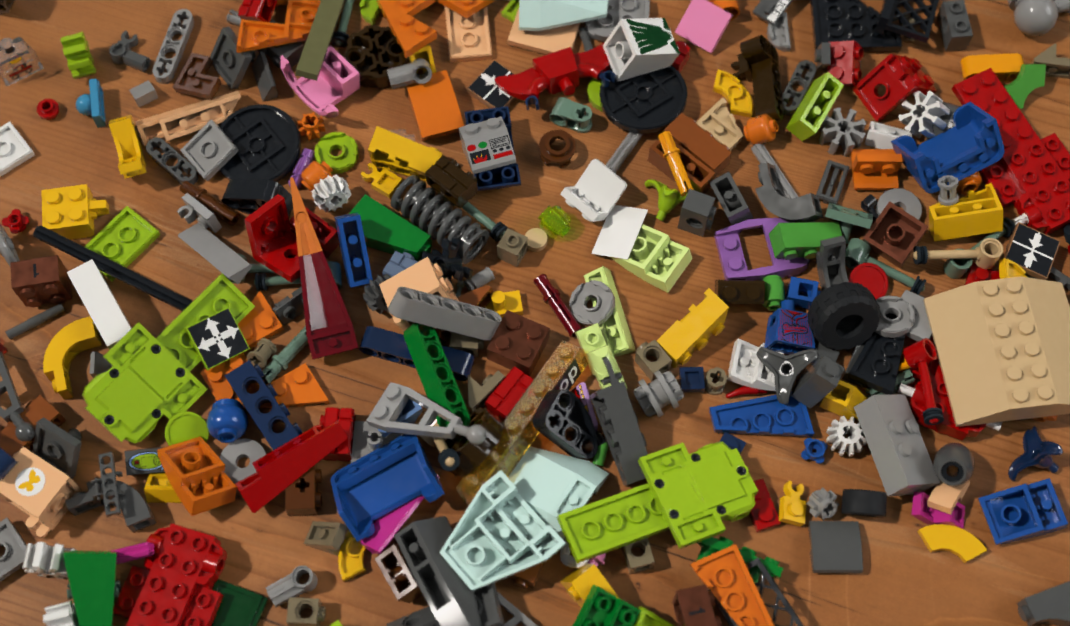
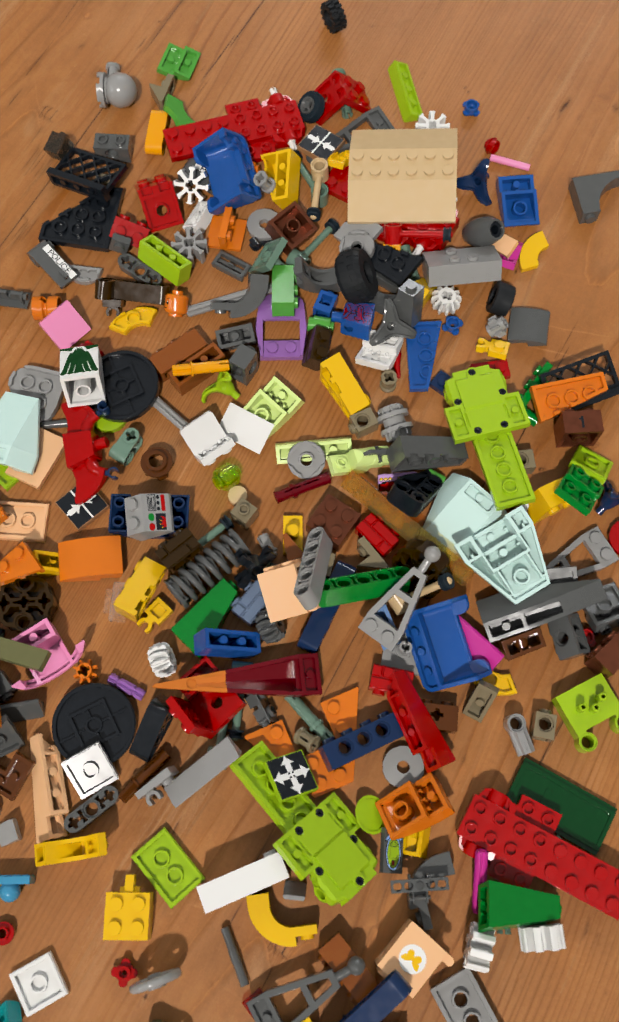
camera: 80 degrees left, 5 degrees up
(41, 281) = (200, 945): copper brick -> none
(57, 446) = (371, 936): dark grey tile -> none
(111, 268) = (200, 872): black axle -> none
(227, 420) = (368, 775): blue piece -> none
(314, 172) = (140, 672): orange head -> none
(333, 141) = (127, 657): lime tile -> none
(407, 74) = (57, 567): light grey piece -> none
(692, 379) = (383, 397): dark blue plate -> none
(721, 125) = (163, 333): tan wing -> none
(872, 277) = (322, 257): red piece -> none

